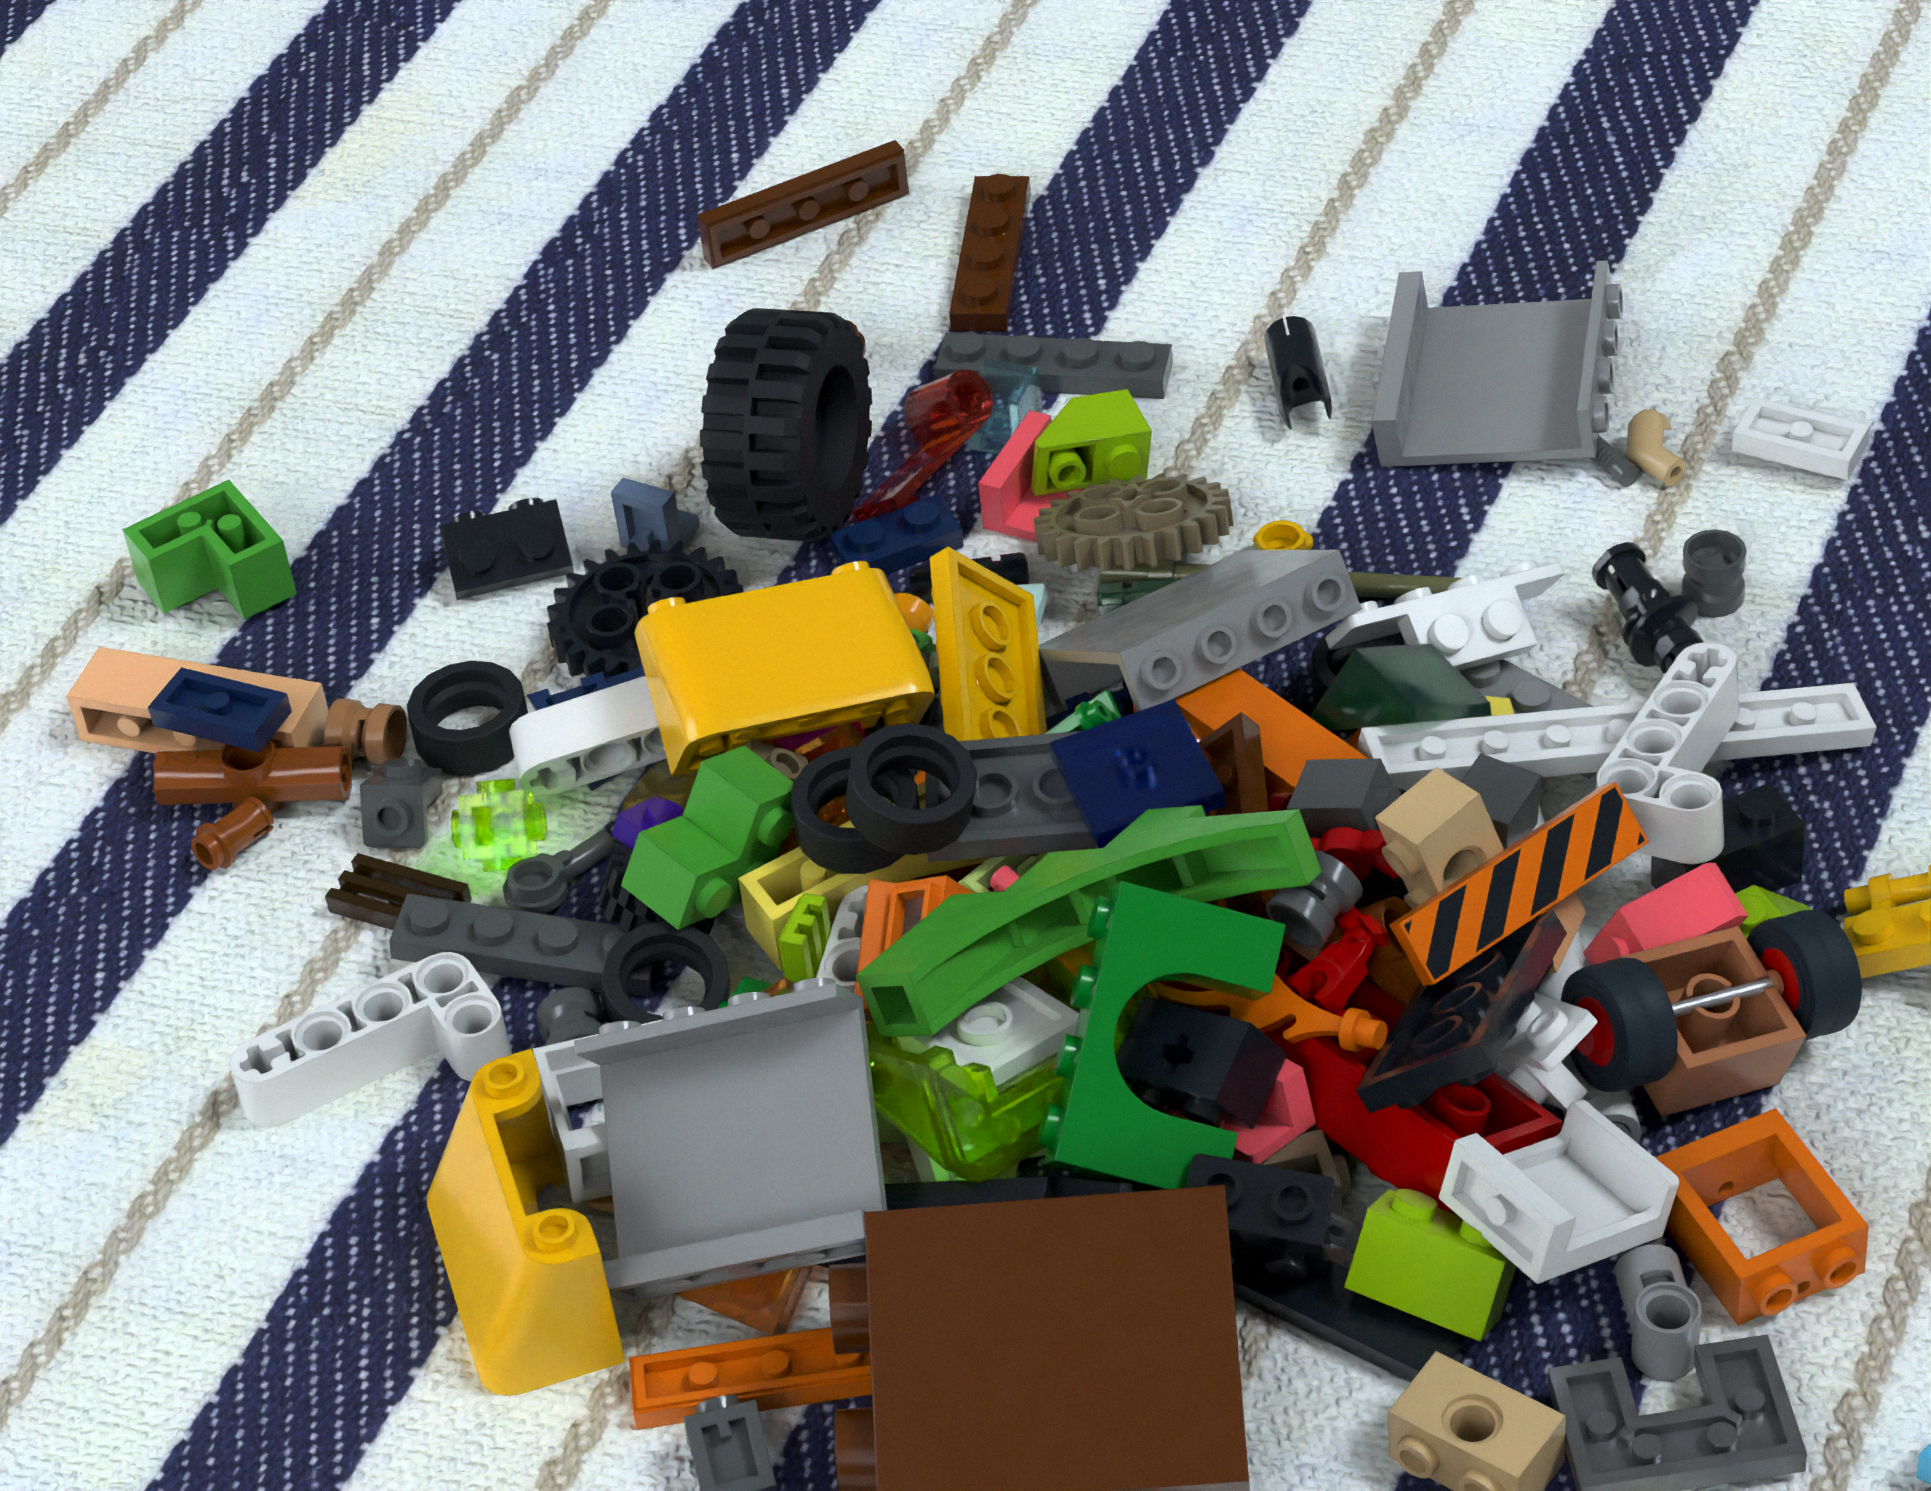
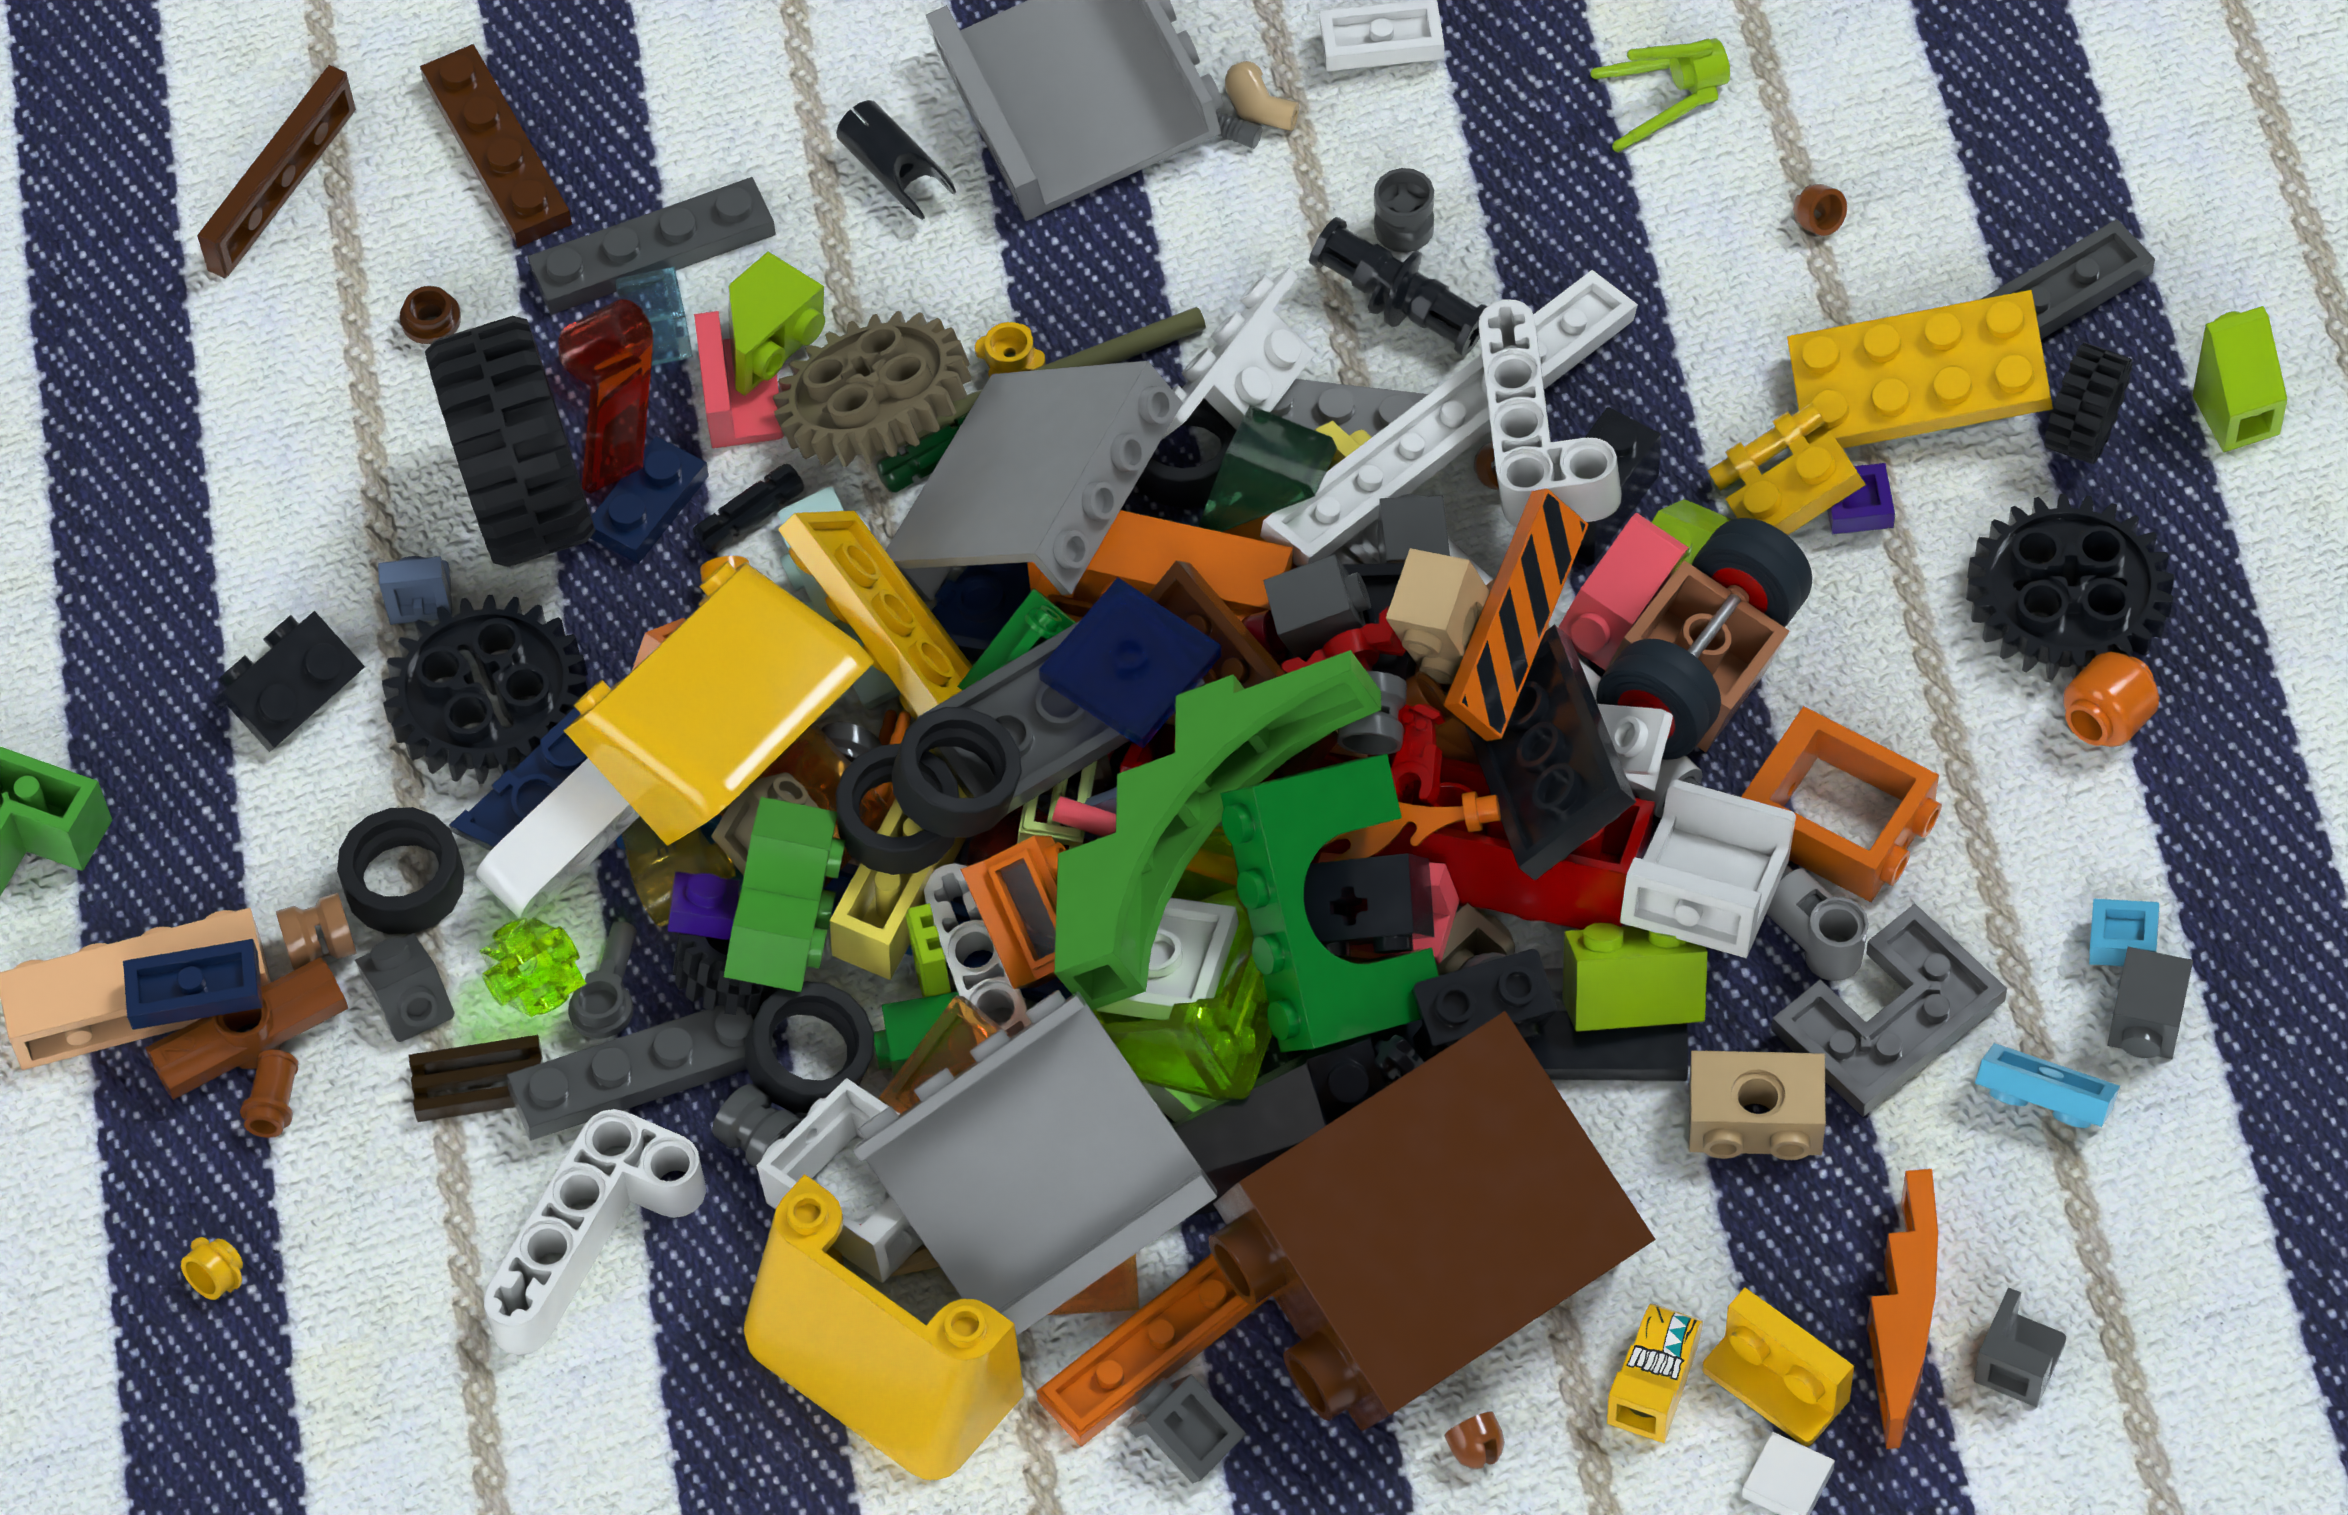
camera: 35 degrees left, 15 degrees up
(77, 938) = (212, 1267): none -> yellow plate

